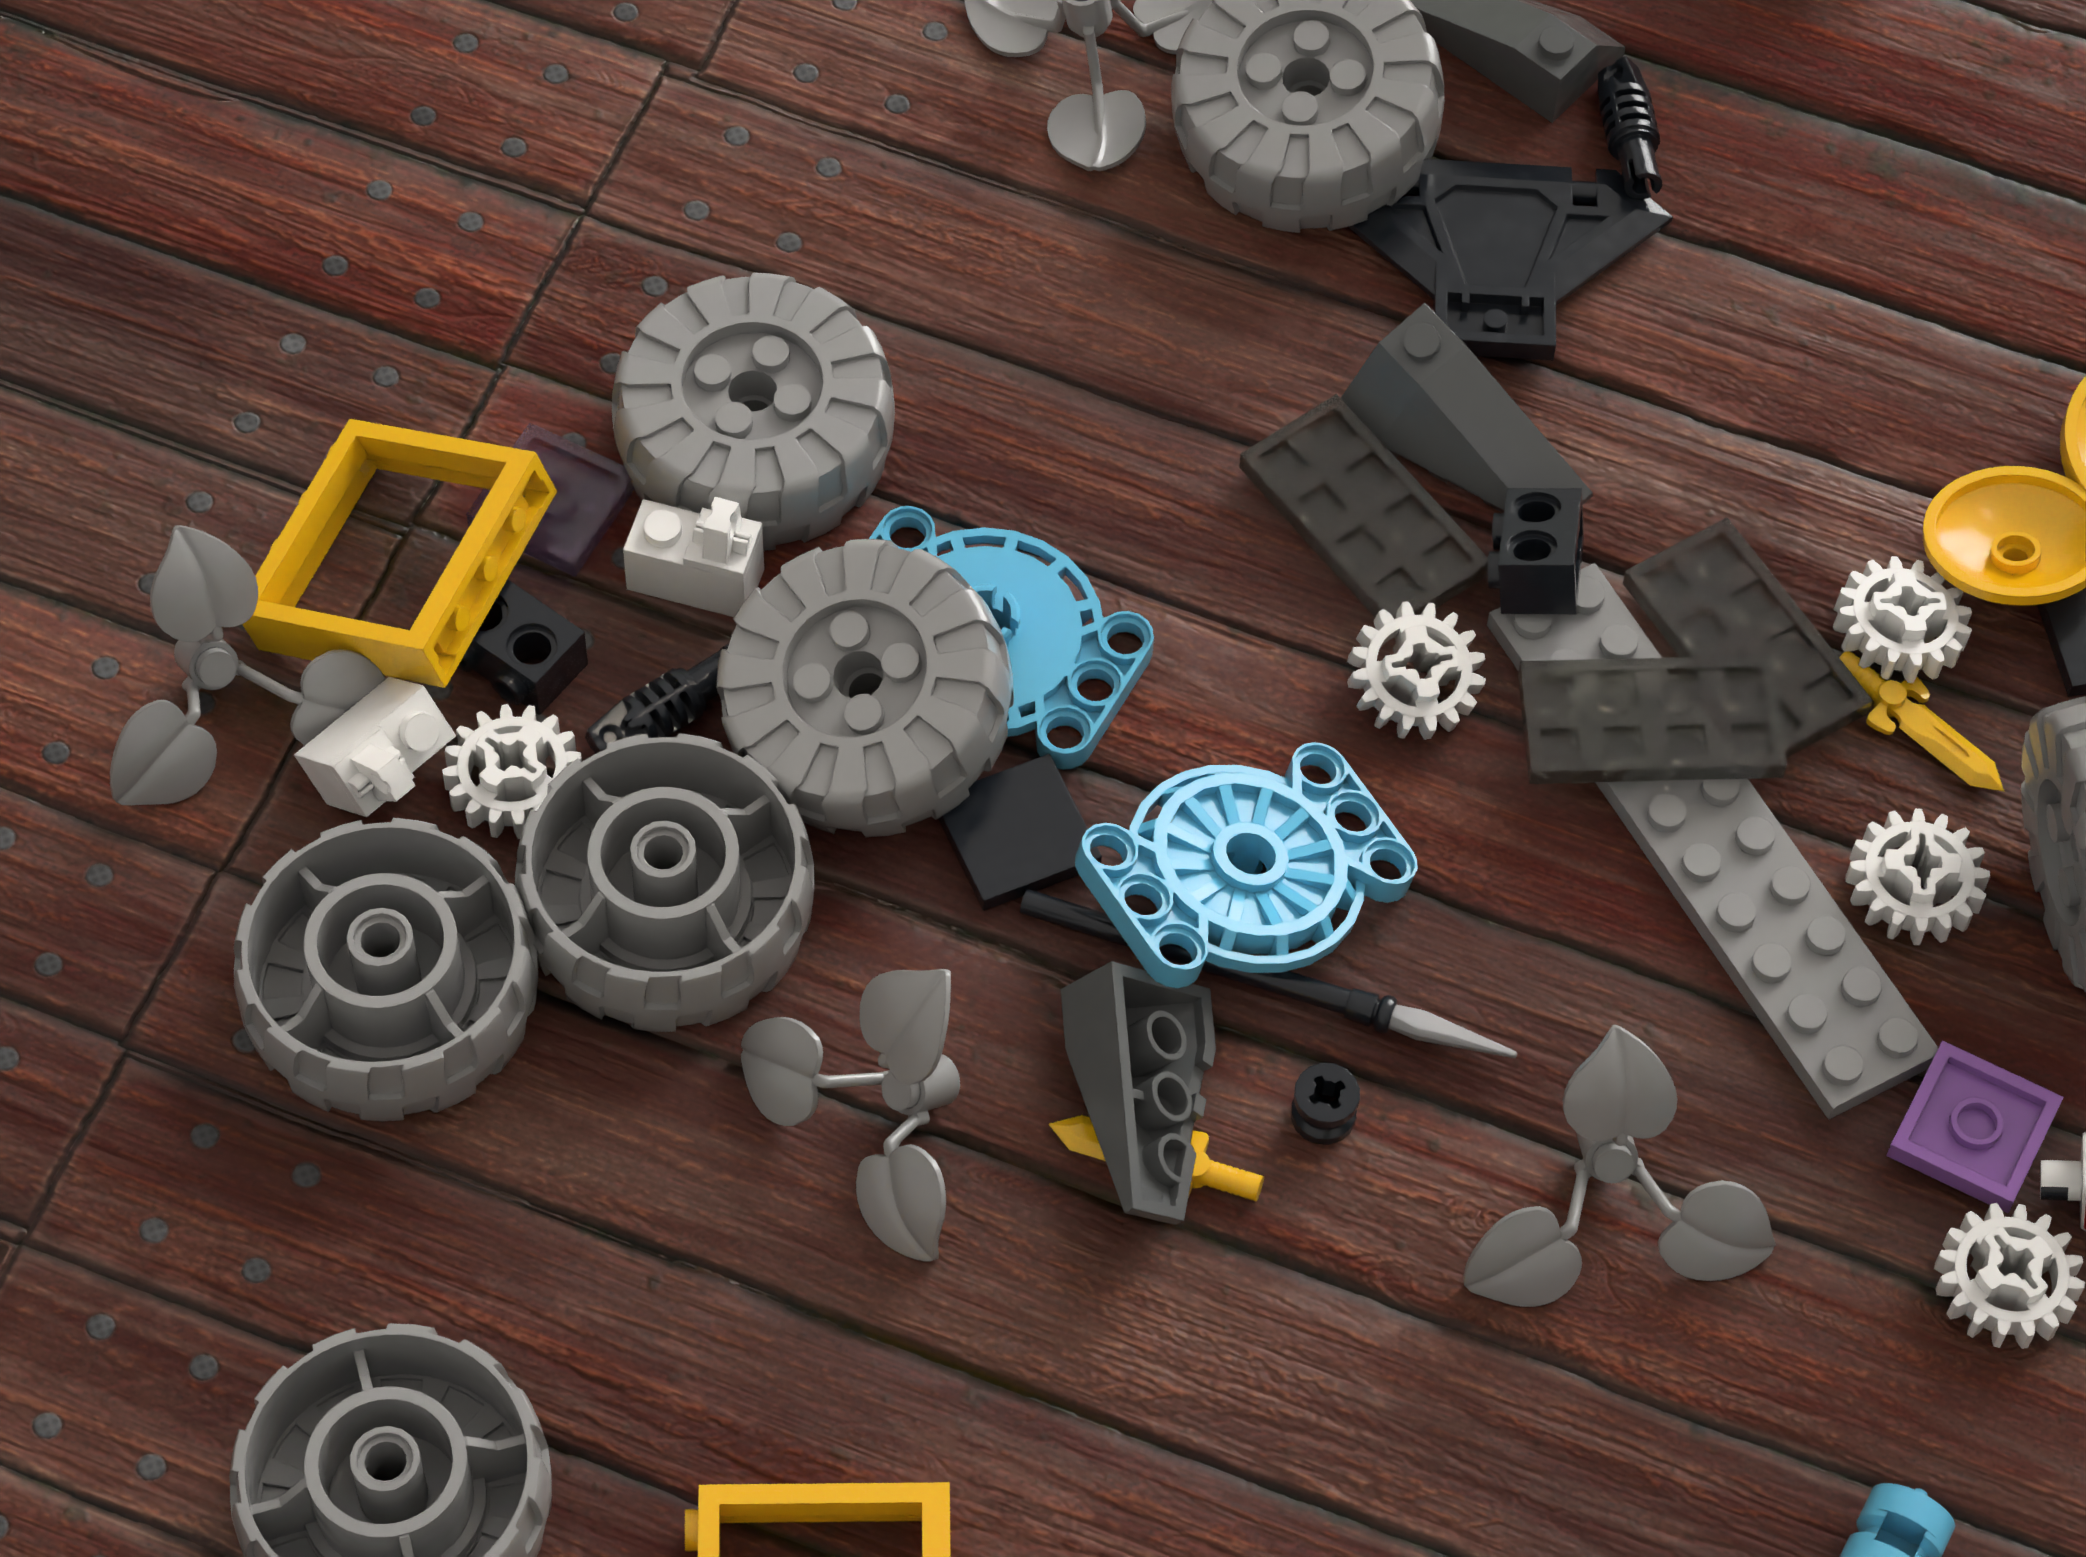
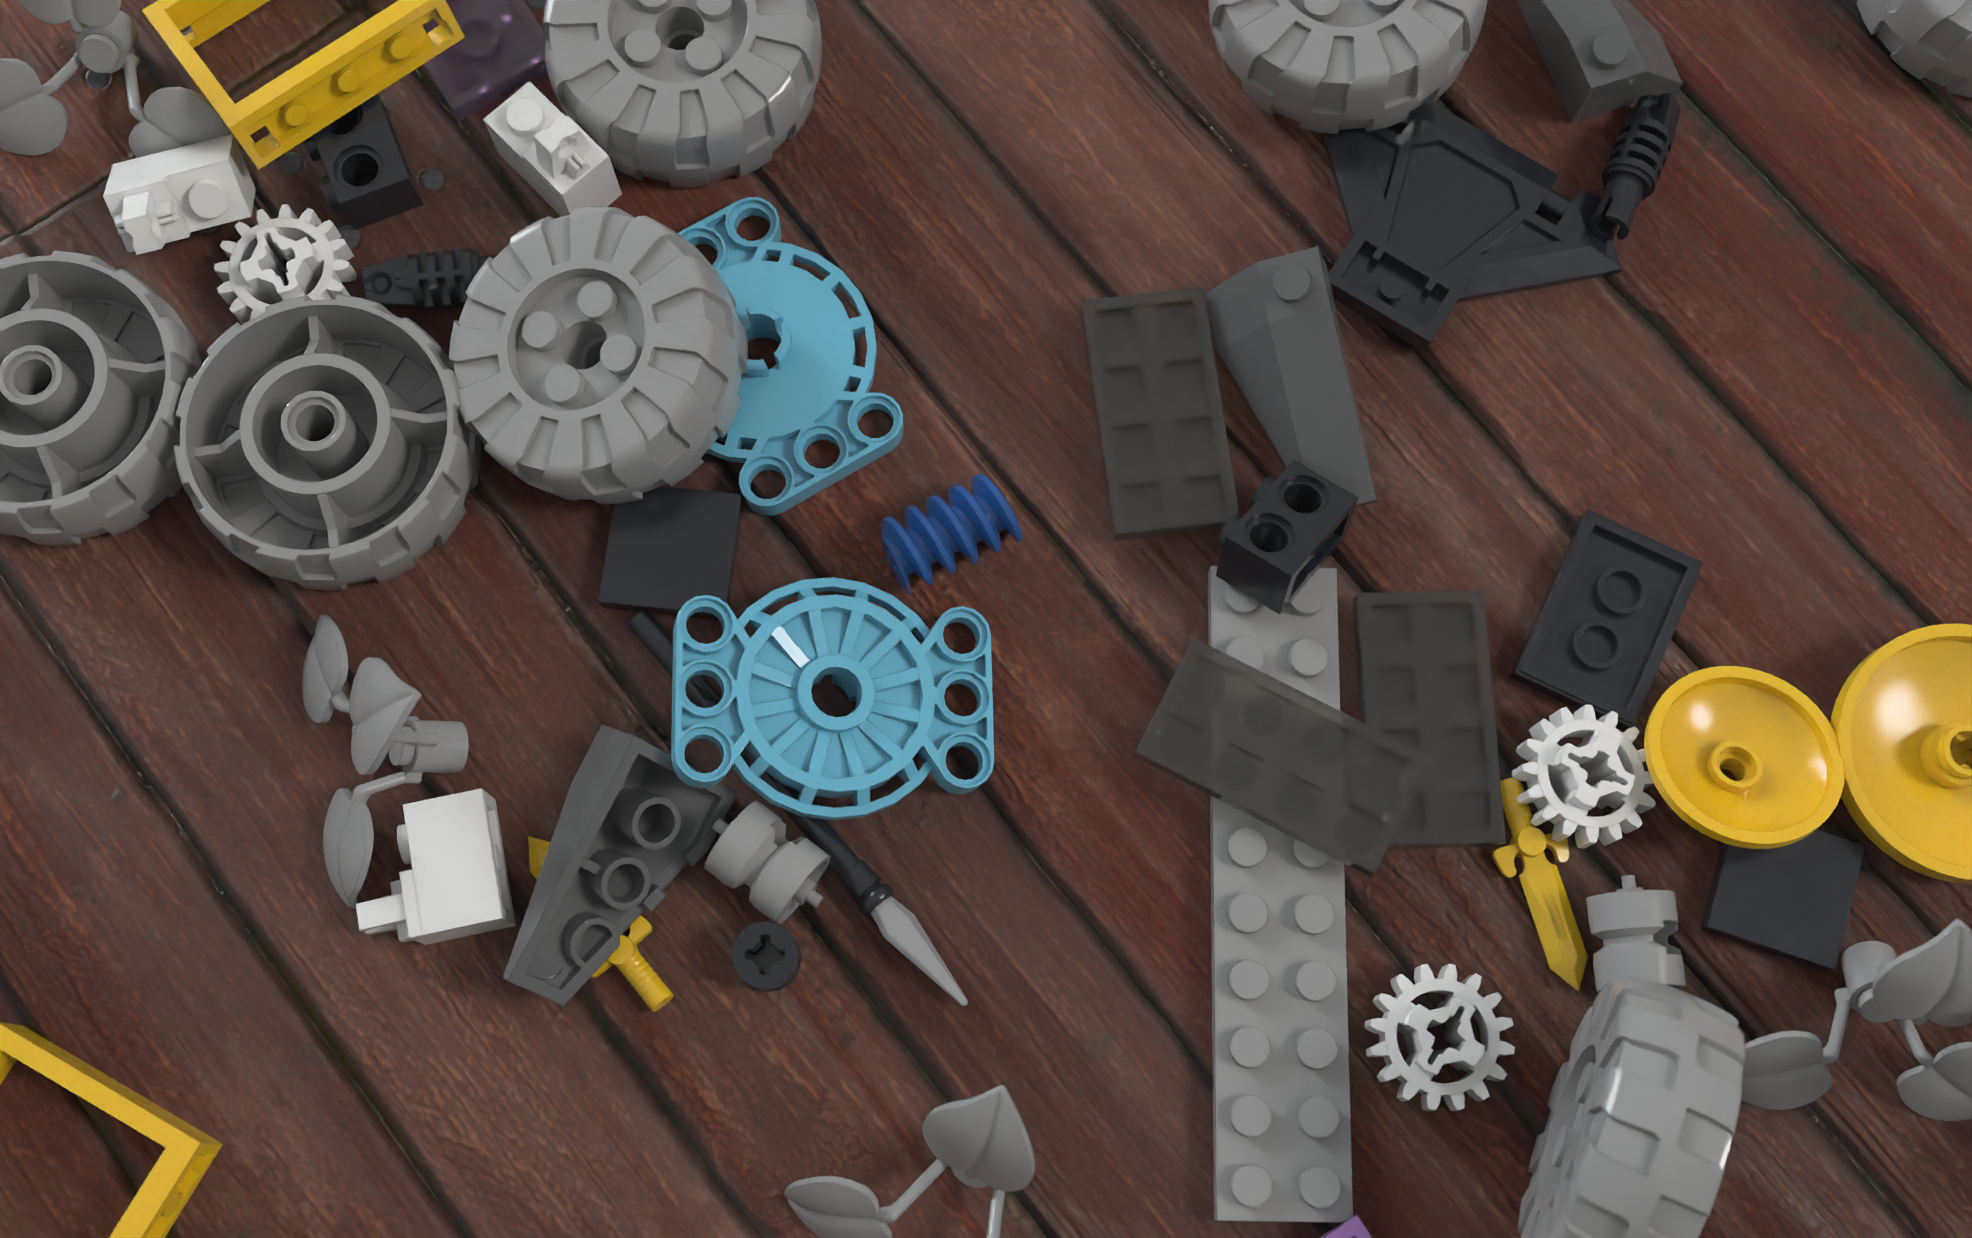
camera: 30 degrees right, 15 degrees up
(1015, 1175) = (455, 876): none -> white hinge
(1252, 692) = (947, 530): none -> blue piece
(1275, 1024) = (759, 855): none -> light grey wheel
(1433, 649) = (1115, 562): white gear -> none
(1837, 494) = (1607, 619): none -> black tile
(2005, 708) = (1635, 935): none -> light grey wheel

